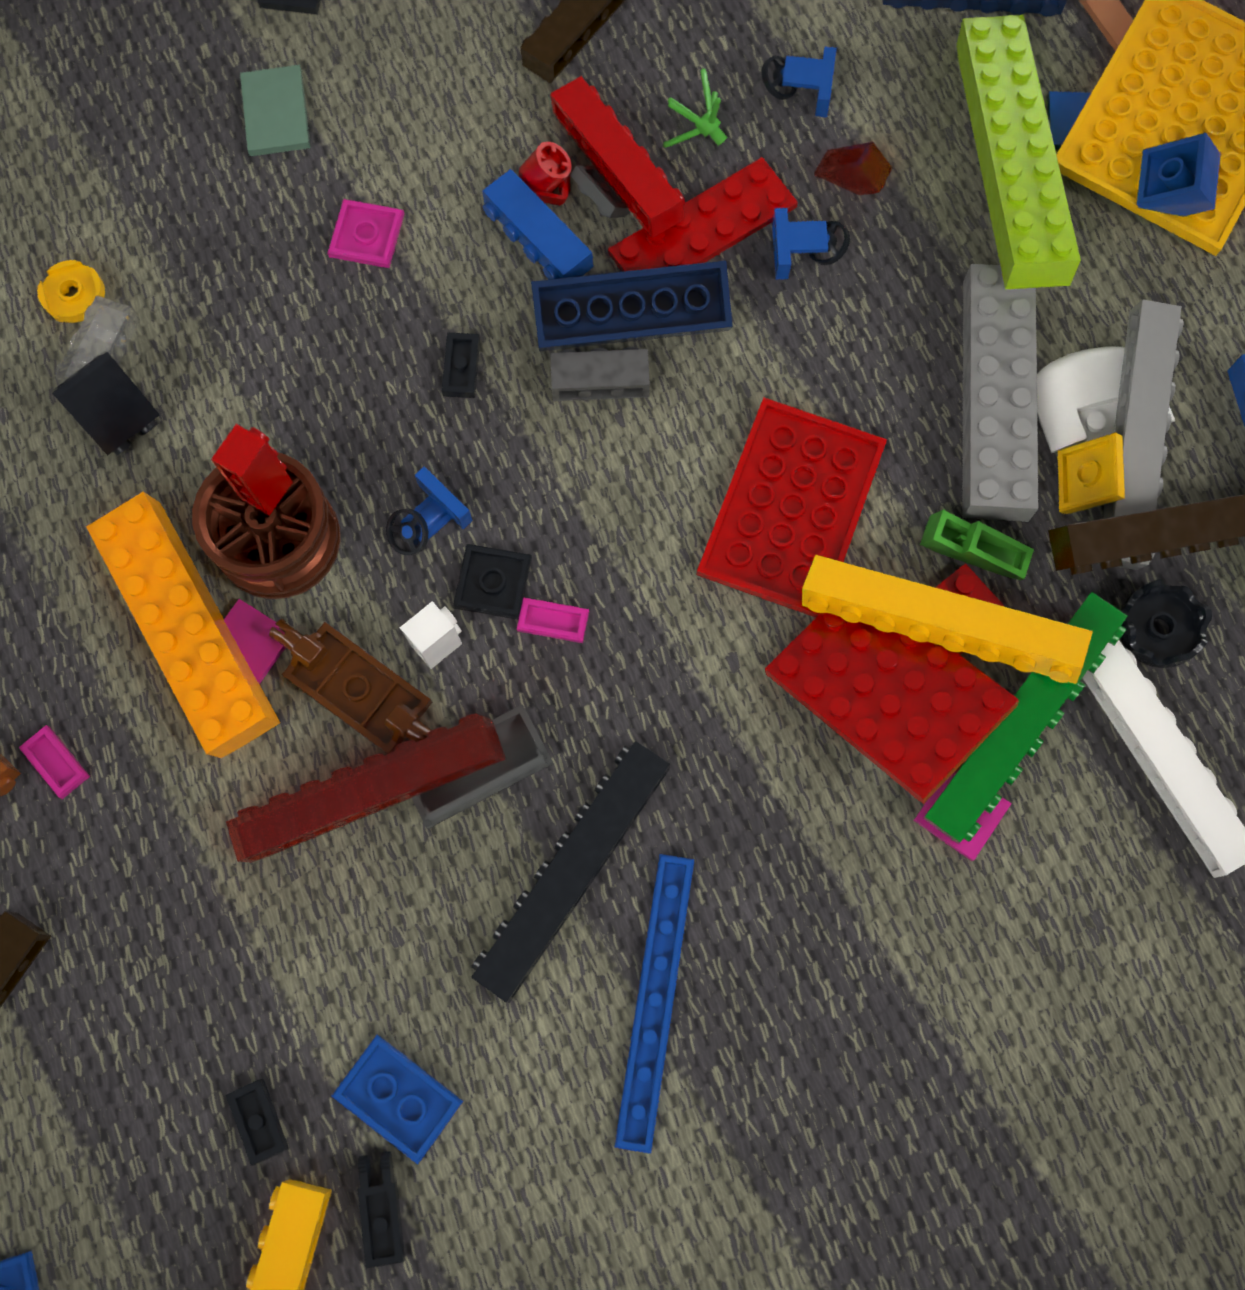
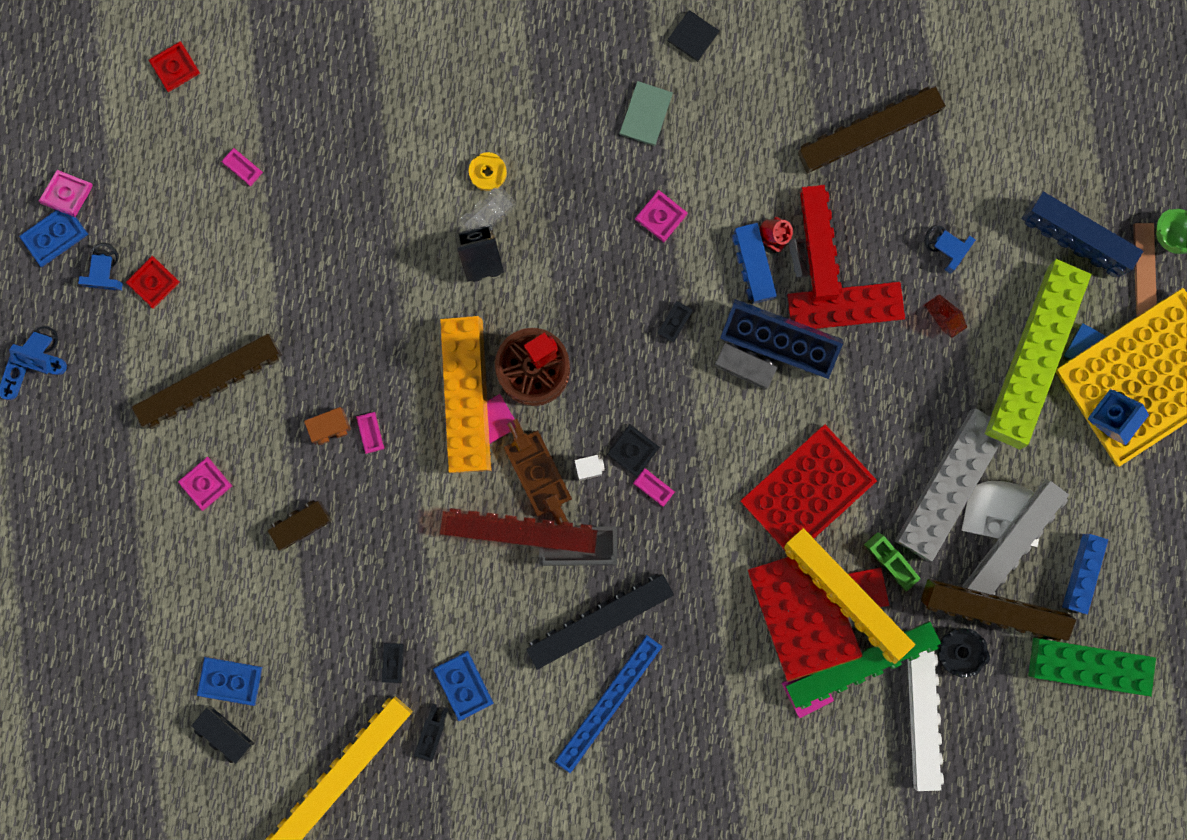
camera: 25 degrees right, 10 degrees up
(428, 516) = (616, 398): blue piece -> none
(707, 123) = (879, 246): bright green plant -> none
(804, 238) = (895, 345): blue piece -> none
(1091, 474) = (972, 555): yellow tile -> none

